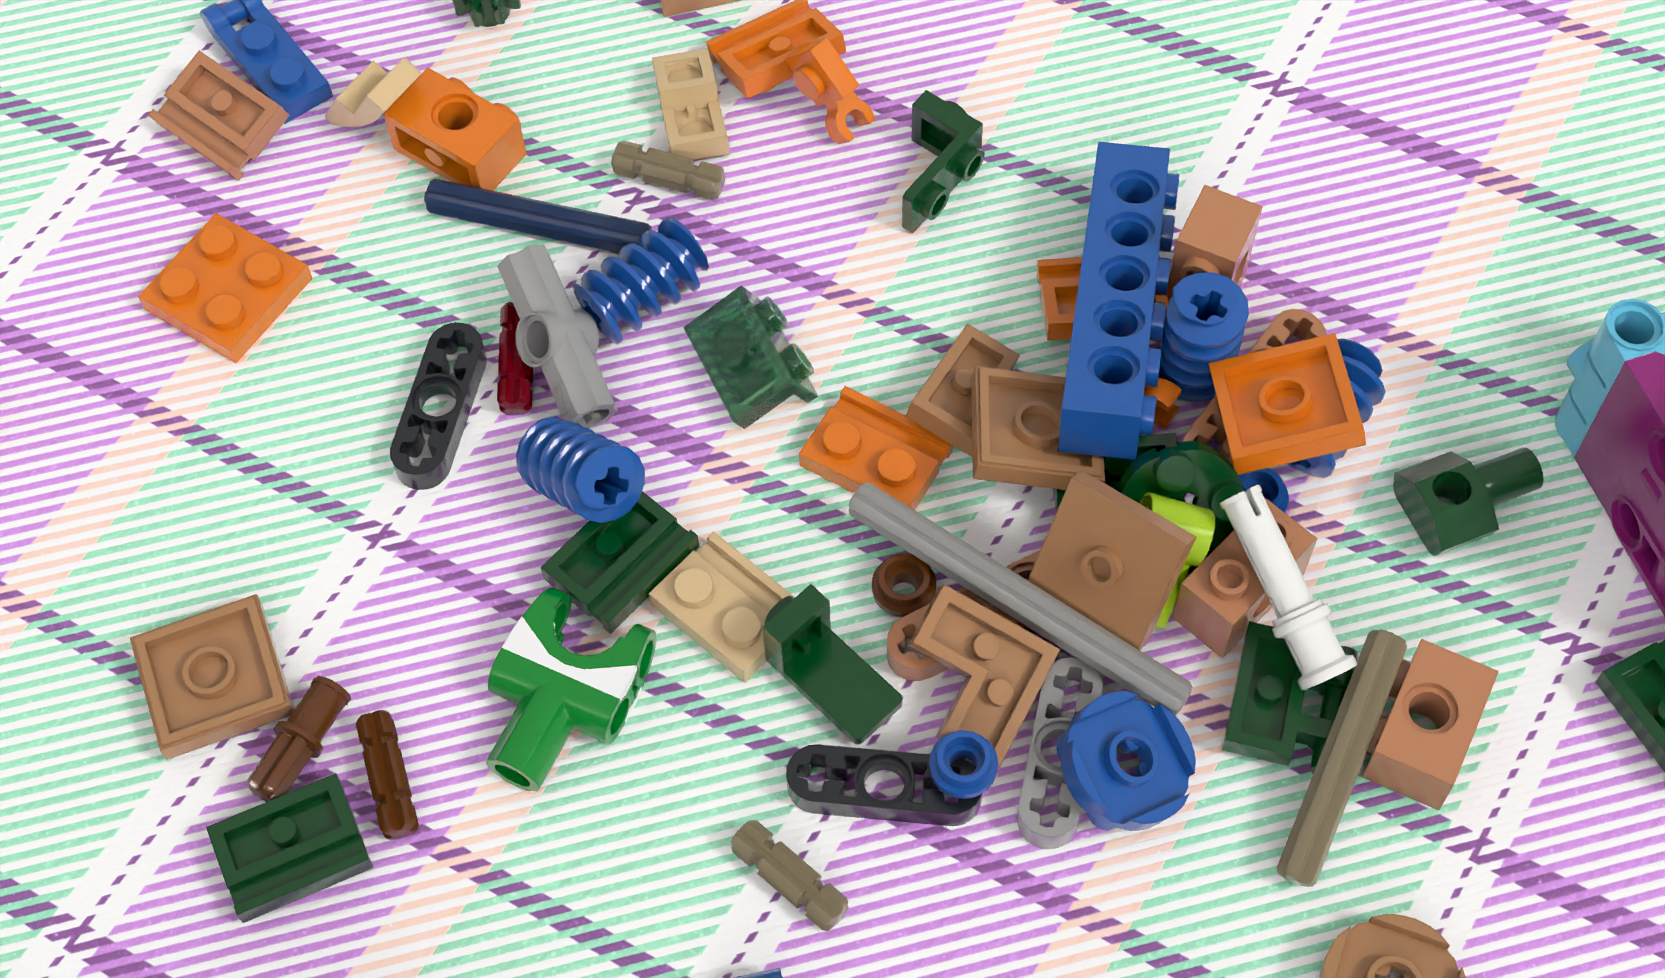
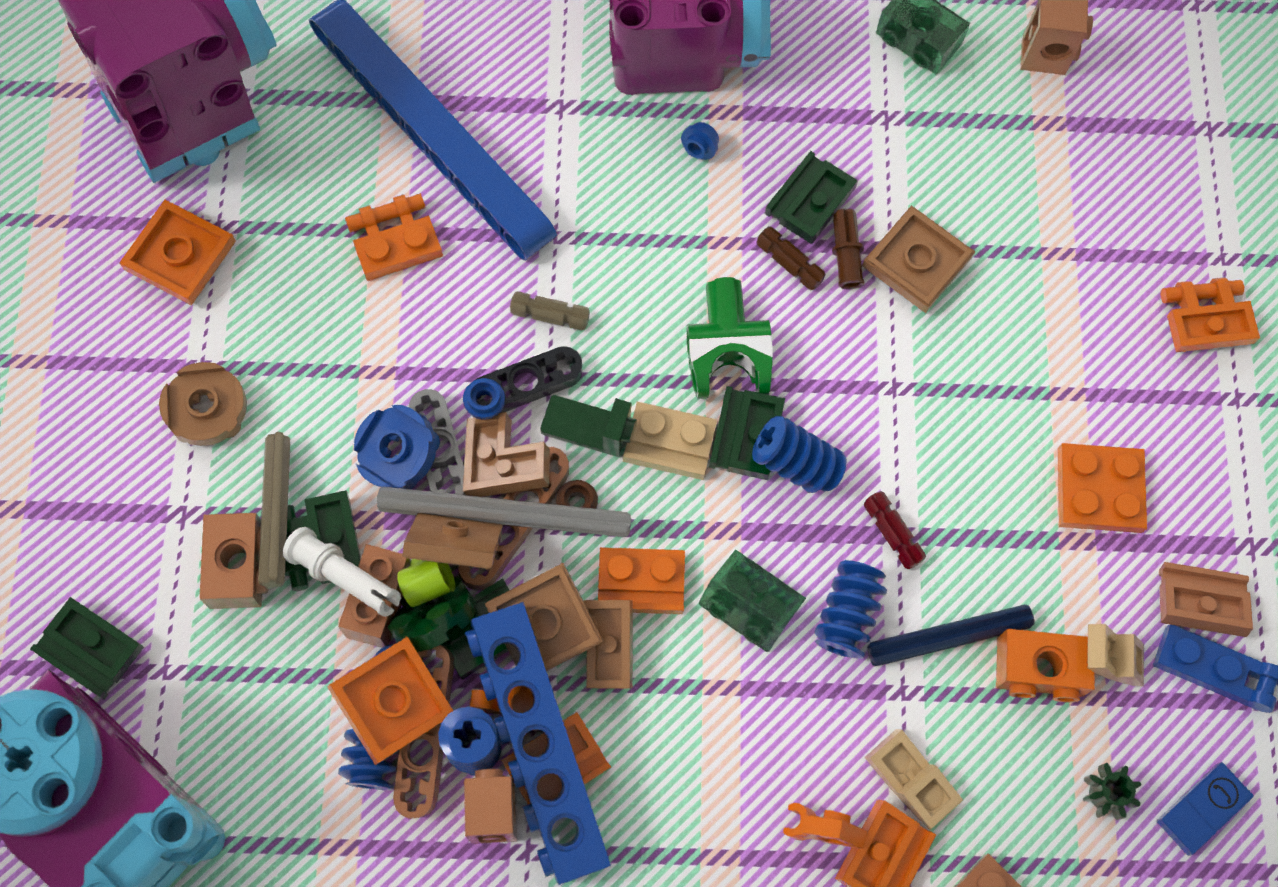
camera: 145 degrees right, 10 degrees up
(447, 429) = (936, 501): black beam -> none
(557, 337) = (874, 541): light grey piece -> none
(668, 170) = (893, 716): dark tan axle -> none
(957, 142) = (727, 844): dark green bracket -> none
(1472, 489) = (254, 738): dark green piece -> none

